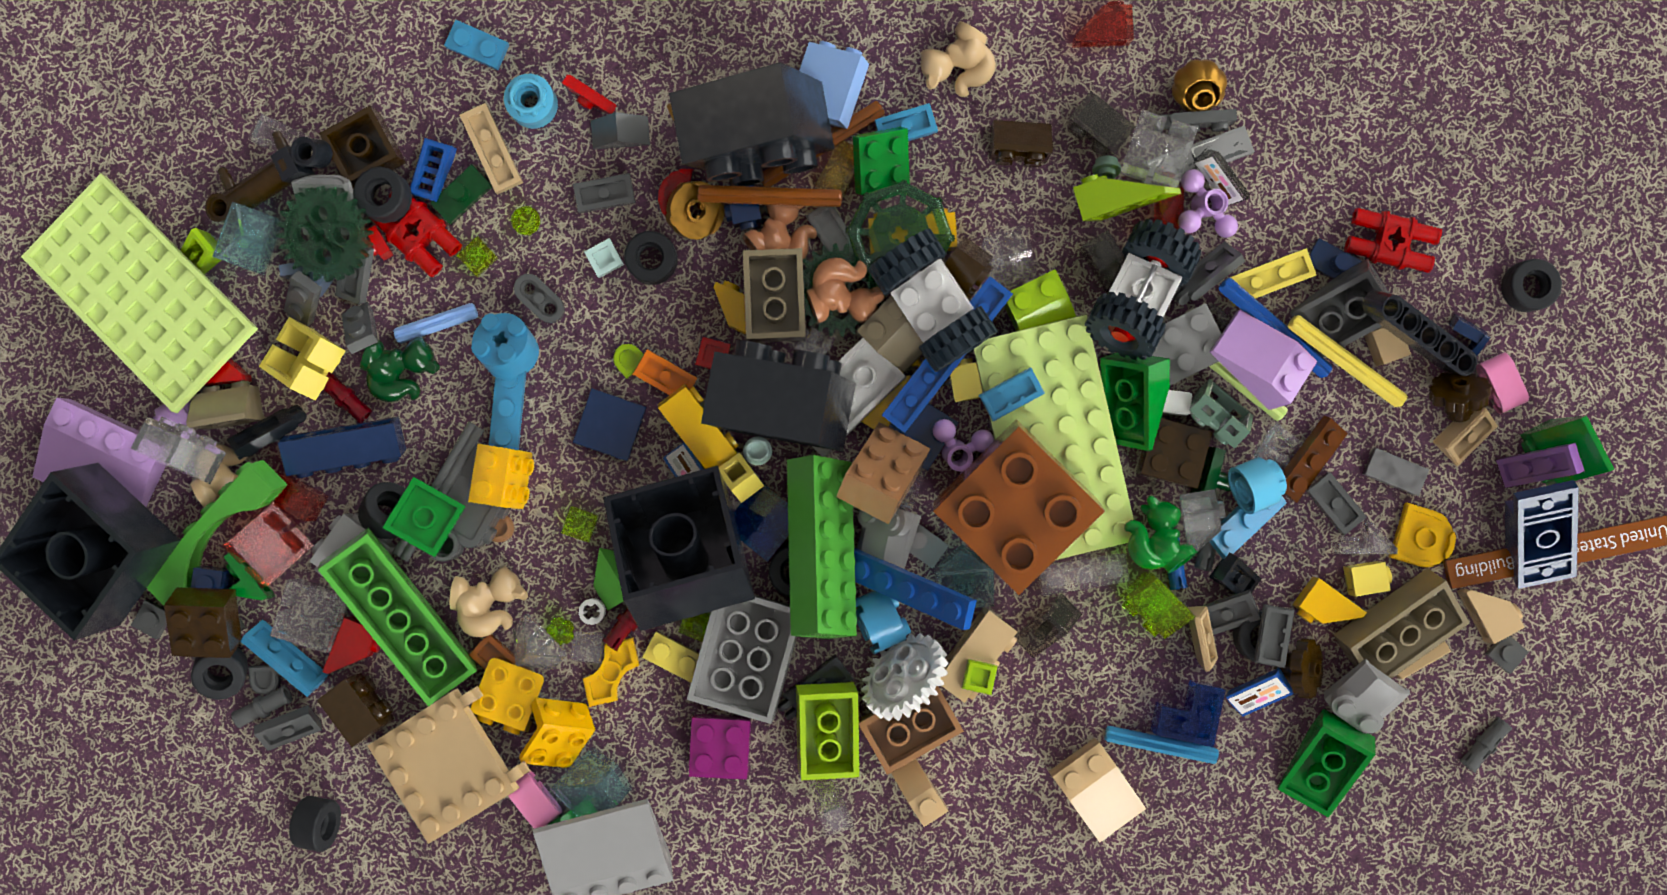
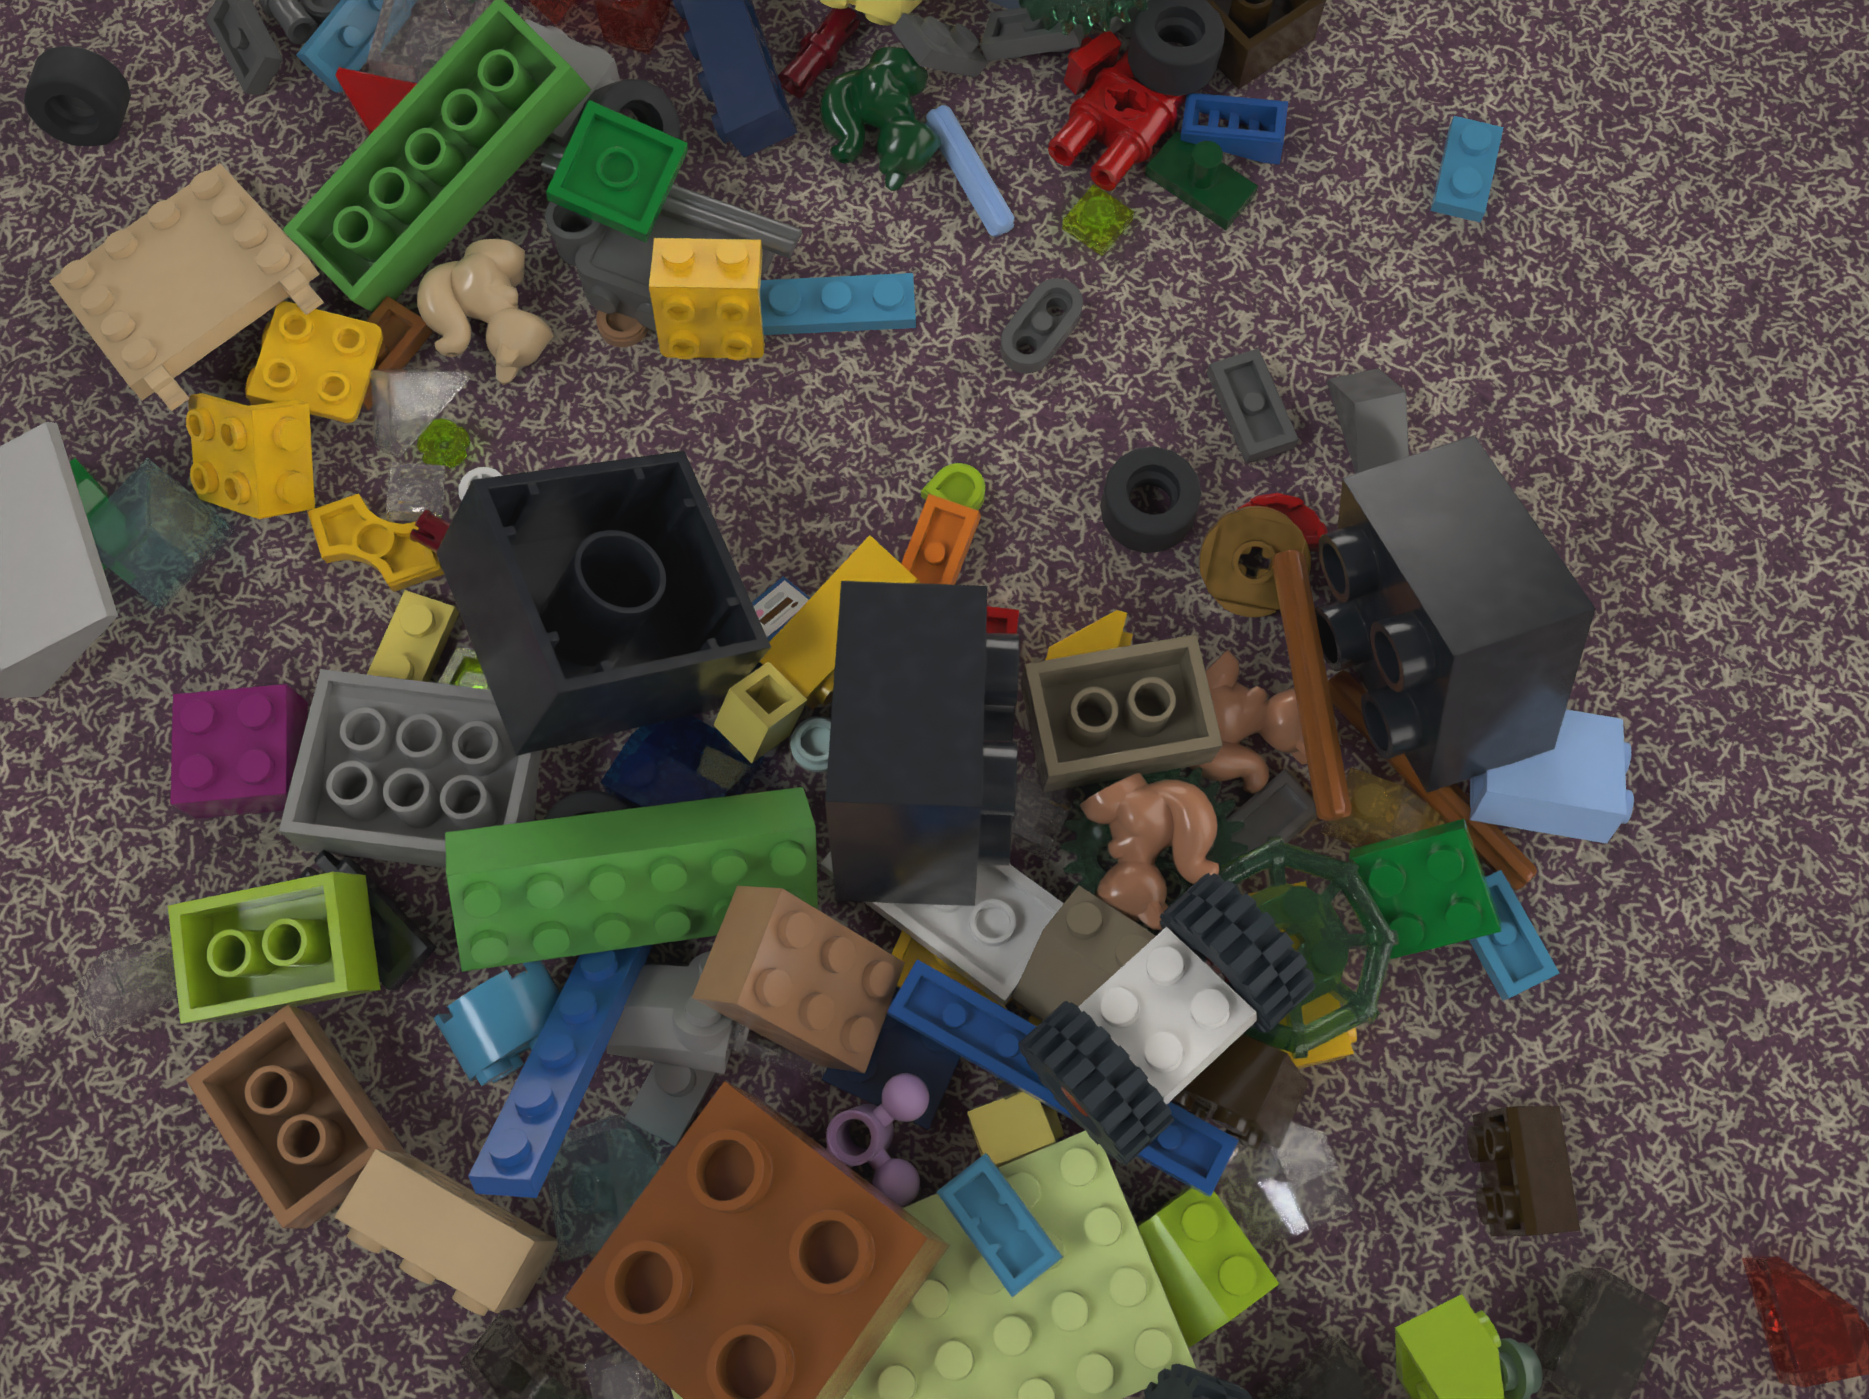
camera: 80 degrees right, 15 degrees down
(356, 709) = (274, 125): dark brown brick -> none
(491, 148) = (1291, 213): tan plate -> none
(505, 346) = (945, 272): dark azure brick -> none
(519, 90) = (1391, 261): medium azure piece -> none
(525, 220) = (1176, 286): clear neon green plate -> none
(535, 801) = (126, 437): bright pink beam -> none
(580, 524) = (642, 438): clear neon green plate -> none
(587, 96) = (1421, 350): red plate -> none
(604, 258) = (1134, 420): light aqua plate -> none
(609, 424) = (831, 476): dark blue tile -> none
(743, 215) = (1263, 652): dark blue brick -> none
(904, 677) = (385, 1087): white gear -> none
(920, 792) = (156, 1163): tan slope -> none
(965, 53) = (1677, 1033): tan animal -> none
(979, 676) = (389, 1240): lime tile -> none

